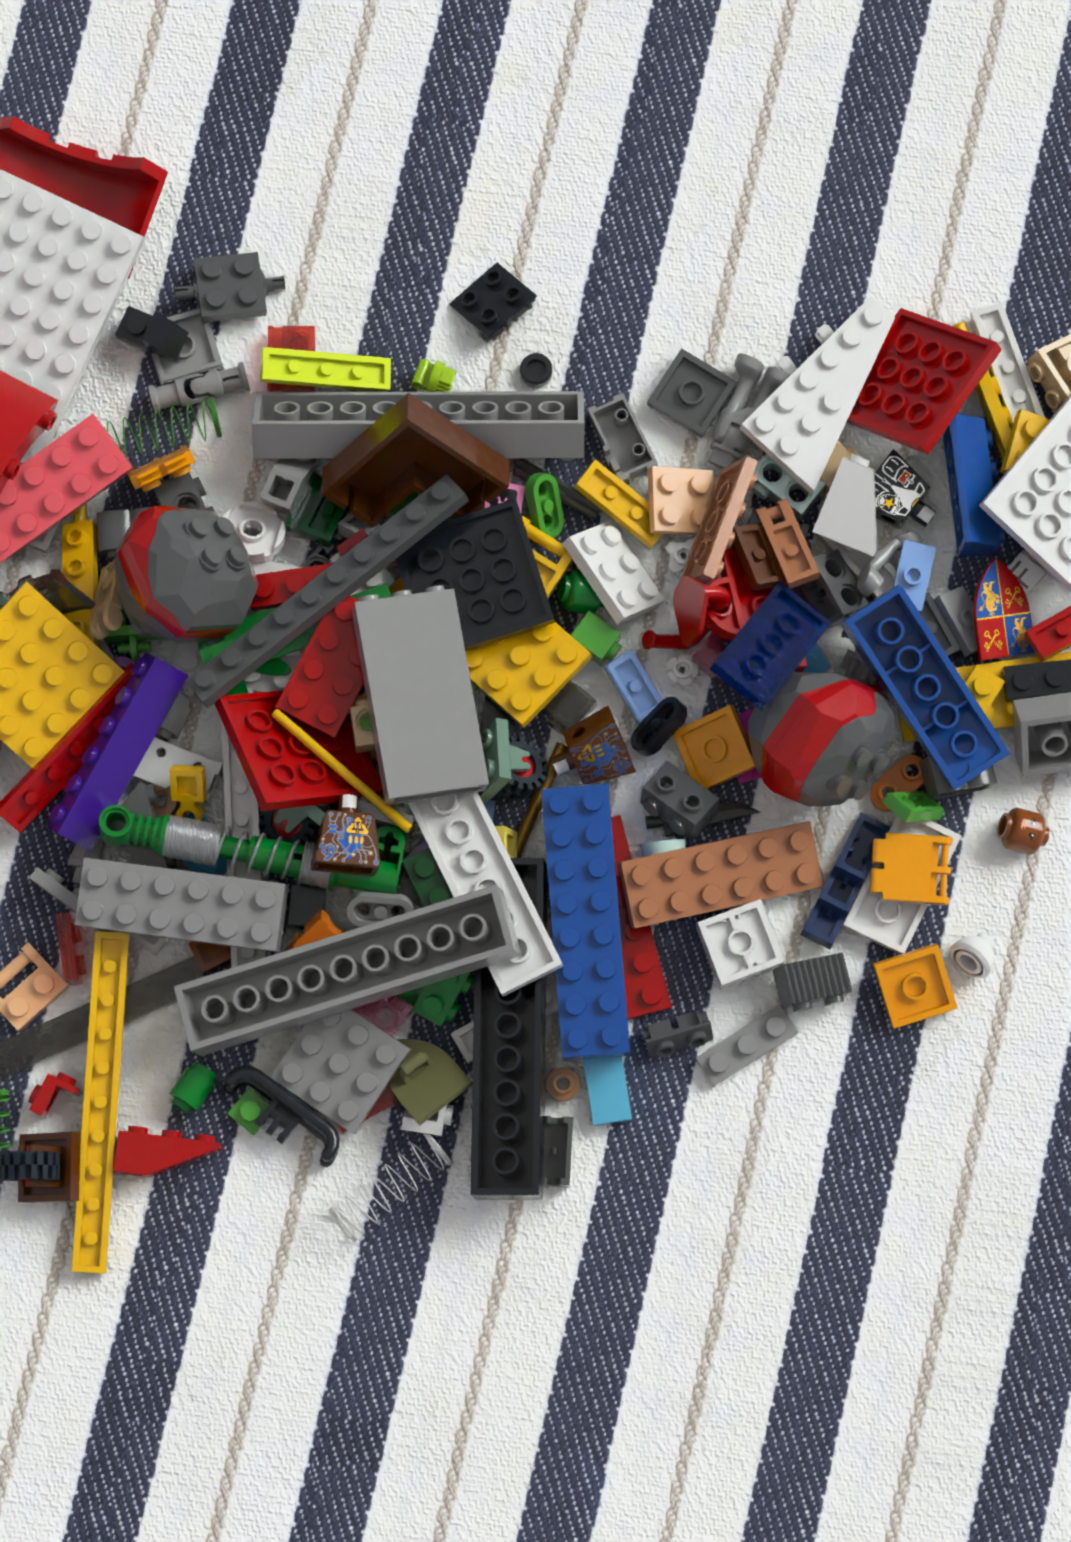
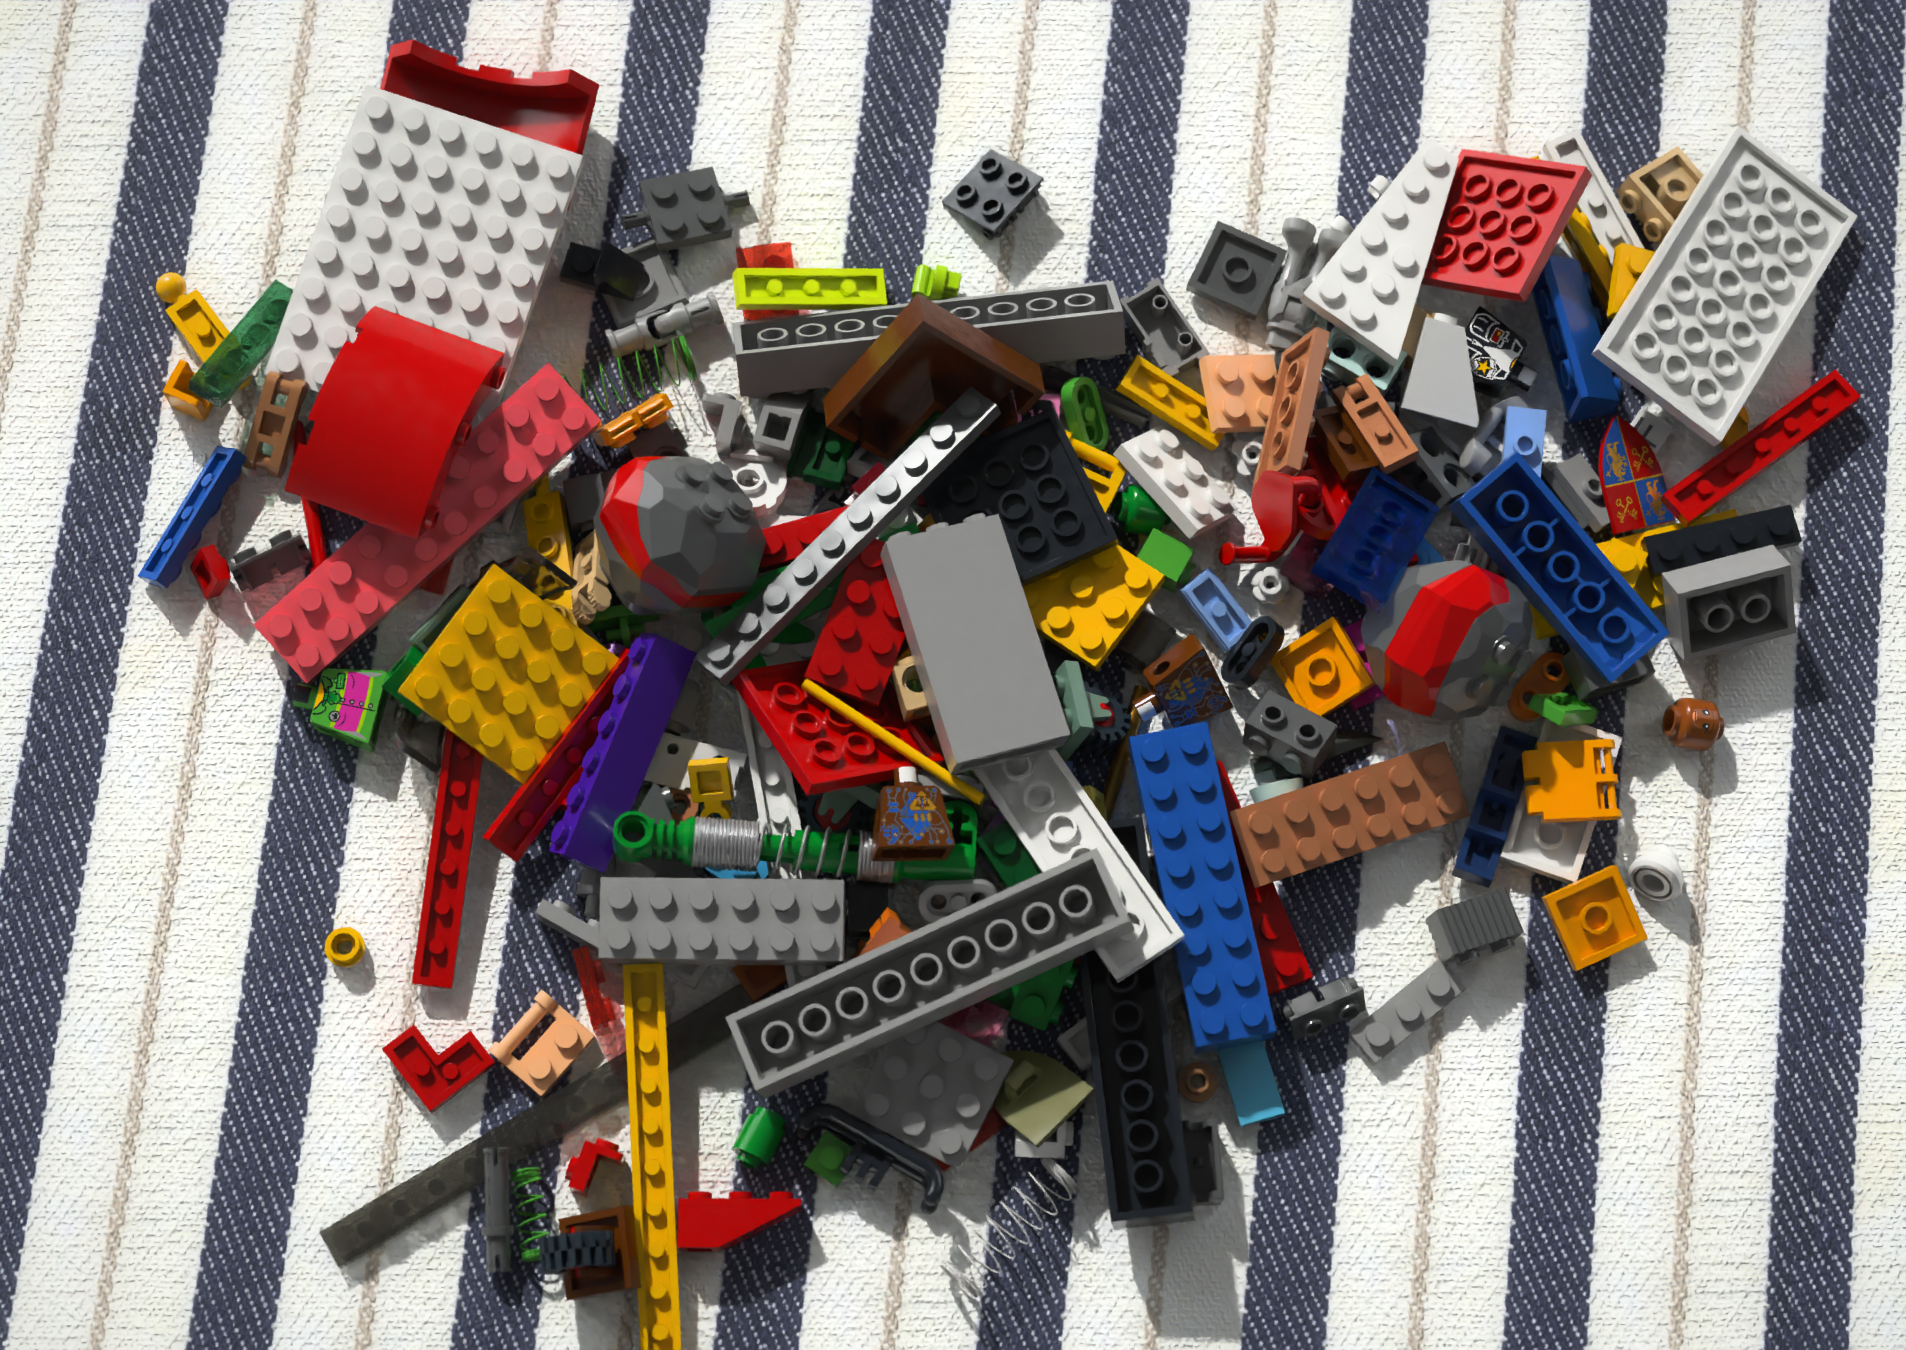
camera: 10 degrees left, 5 degrees down
(244, 481) = (730, 429): none -> light grey bracket
(536, 370) = (1052, 265): black tile -> none
(740, 944) = (1383, 892): white piece -> none

